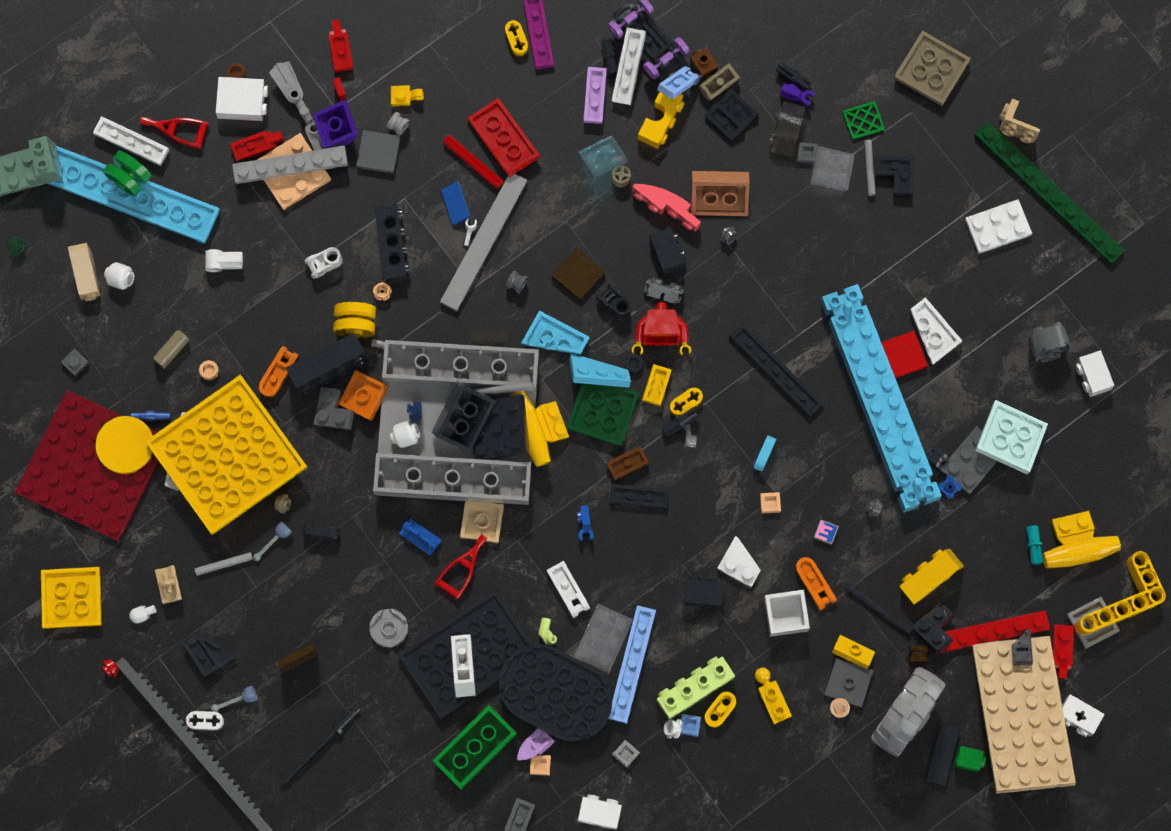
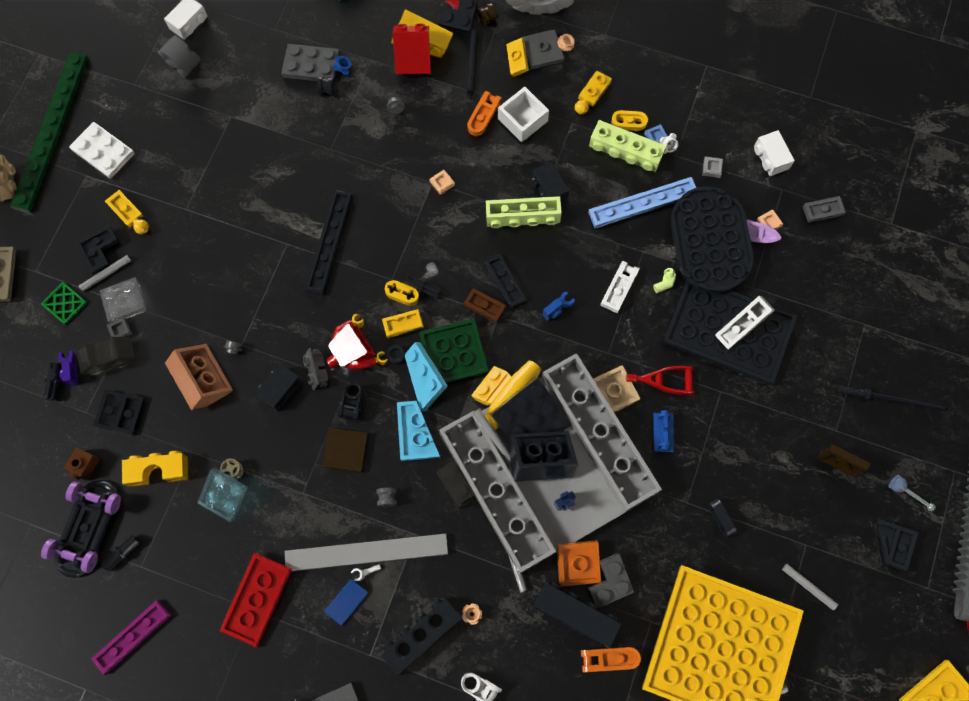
camera: 120 degrees left, 5 degrees down
(141, 613) = (907, 629): white cylinder -> none
(168, 584) = (868, 622): tan hips -> none
(206, 716) = (948, 508): white beam -> none
(281, 531) = (745, 554): hinge -> none
(282, 503) = (722, 569): dark tan plate -> none
(354, 318) = (518, 617): yellow wheel -> none
(388, 628) = (755, 408): light grey tile -> none
(405, 434) = (590, 498): white head -> none
(473, 162) = (296, 613): red axle -> none
(474, 747) = (800, 273): green brick -> none
(512, 39) = (152, 656): yellow beam -> none
(595, 95) = (166, 542): lavender plate -> none
(603, 638) = (638, 237): clear plate -> none
(628, 66) = (119, 527): white plate -> none
(661, 200) = (233, 418): coral slope -> none
(679, 82) = (112, 470): light blue plate -> none
(690, 549) = (523, 212): none -> yellowish green brick
(718, 82) = (93, 439): dark tan brick -> none
(739, 564) = (506, 175): white wing -> none
(764, 453) = (405, 207): medium azure beam -> none
(826, 532) = (438, 129): tile -> none
(880, 398) = (300, 151): medium azure brick -> none
(904, 354) = (255, 157): red tile -> none
(916, 215) = (127, 212): none -> yellow plate
(916, 552) = (411, 49): none -> red panel
(934, 331) = (221, 144): white wing -> none
(1011, 437) = (274, 42): light aqua plate -> none

